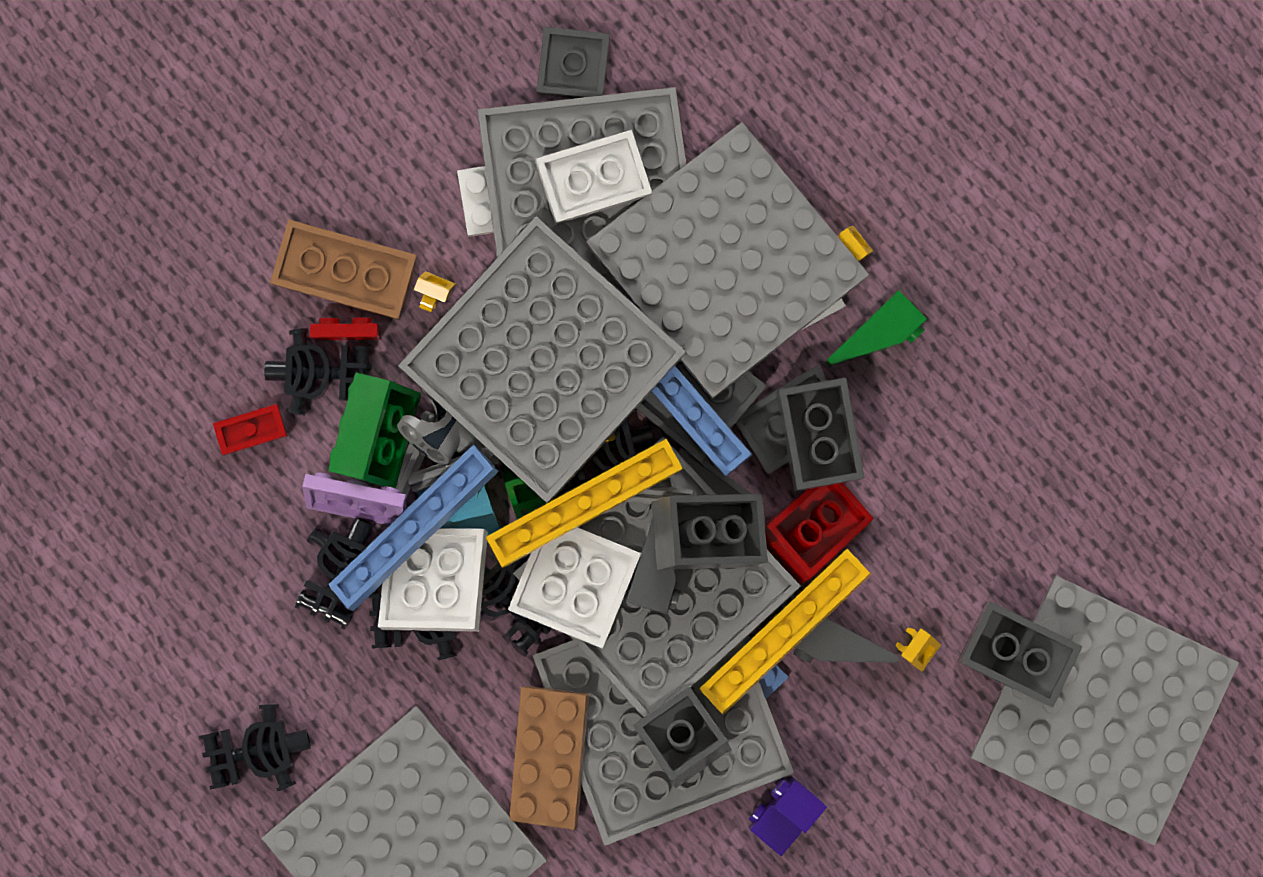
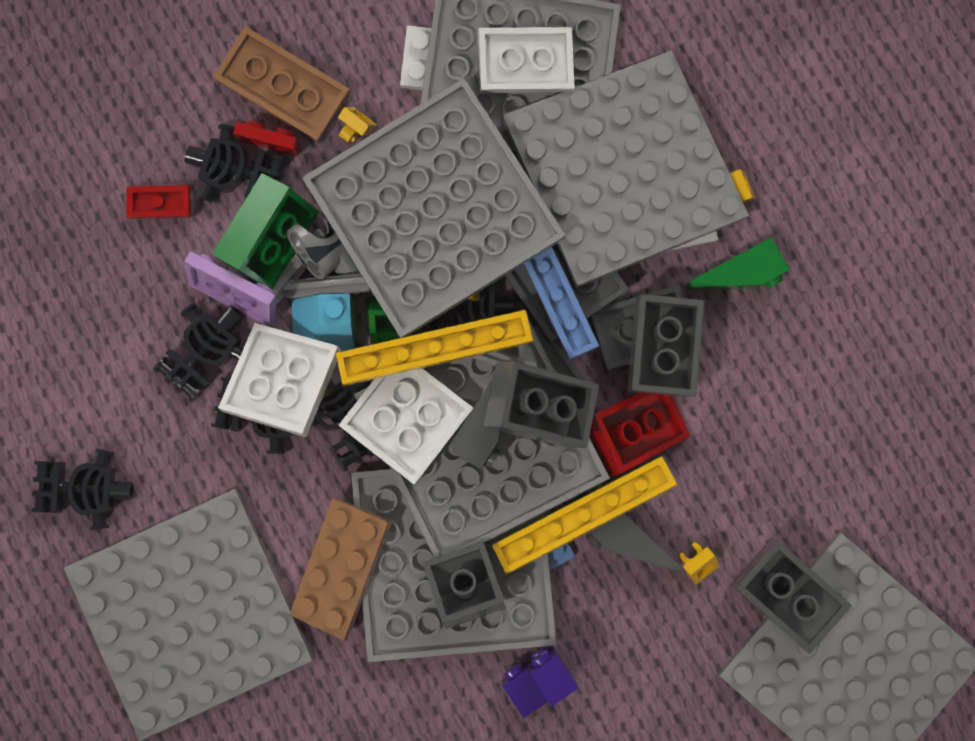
camera: 15 degrees right, 0 degrees up
(413, 528) = (274, 327): medium blue plate -> none

